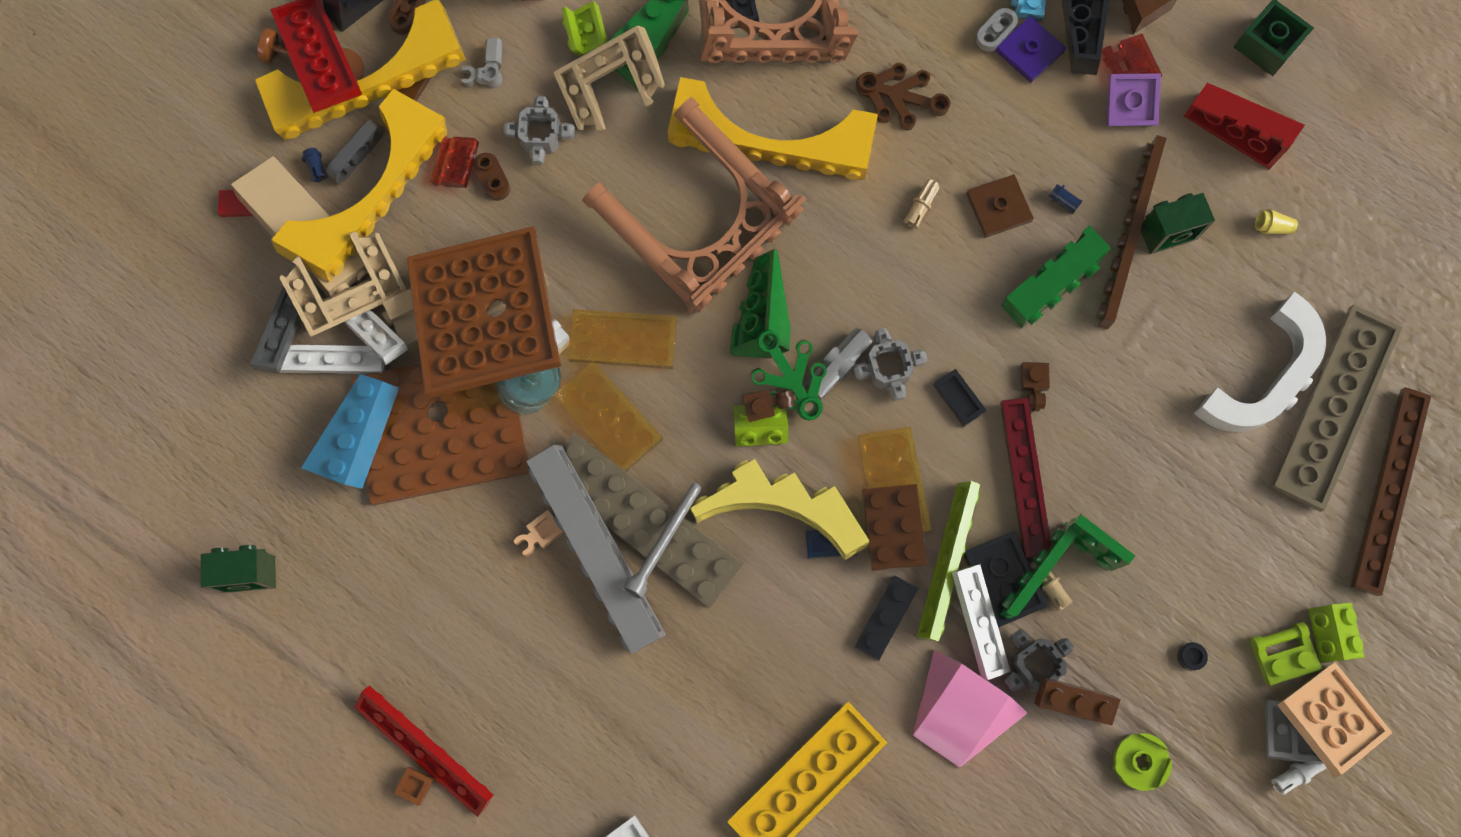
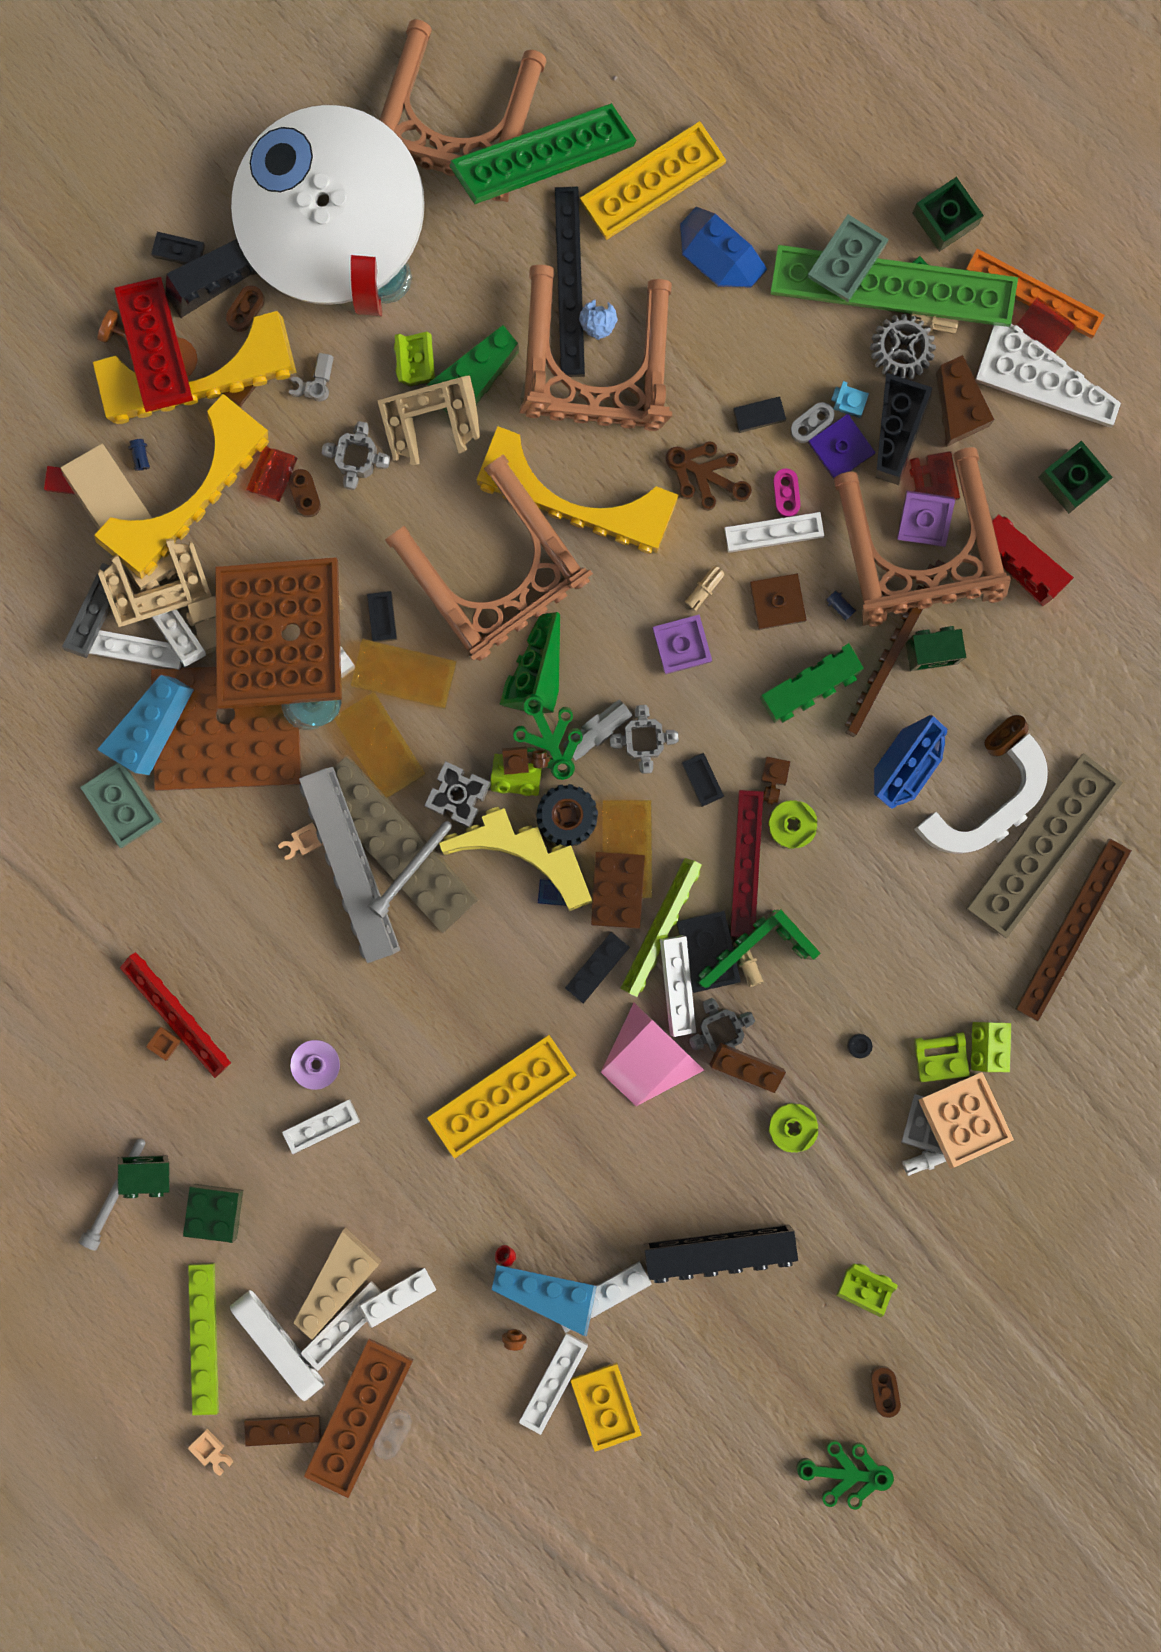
camera: 10 degrees right, 10 degrees up
(238, 570) = (26, 832): dark green brick -> none
(335, 525) = (121, 804): none -> sand green plate
(355, 151) = (179, 447): dark grey beam -> none
(575, 784) = (302, 1066): none -> lavender dish
(590, 285) = (382, 616): none -> black tile
(694, 440) = (453, 780): none -> light grey brick
(823, 456) = (566, 815): none -> black wheel
(910, 263) = (682, 644): none -> medium lavender plate
(941, 31) = (759, 414): none -> black tile
(981, 138) = (774, 532): none -> white plate
(985, 101) = (786, 493): none -> dark pink plate
(1081, 428) = (790, 838): none -> lime plate
(1106, 181) = (992, 586): none -> nougat arch
(1176, 339) = (909, 762): none -> blue wedge
(1268, 300) = (1006, 735): none -> reddish brown plate
(1274, 223) = (1030, 661): light yellow cone -> none

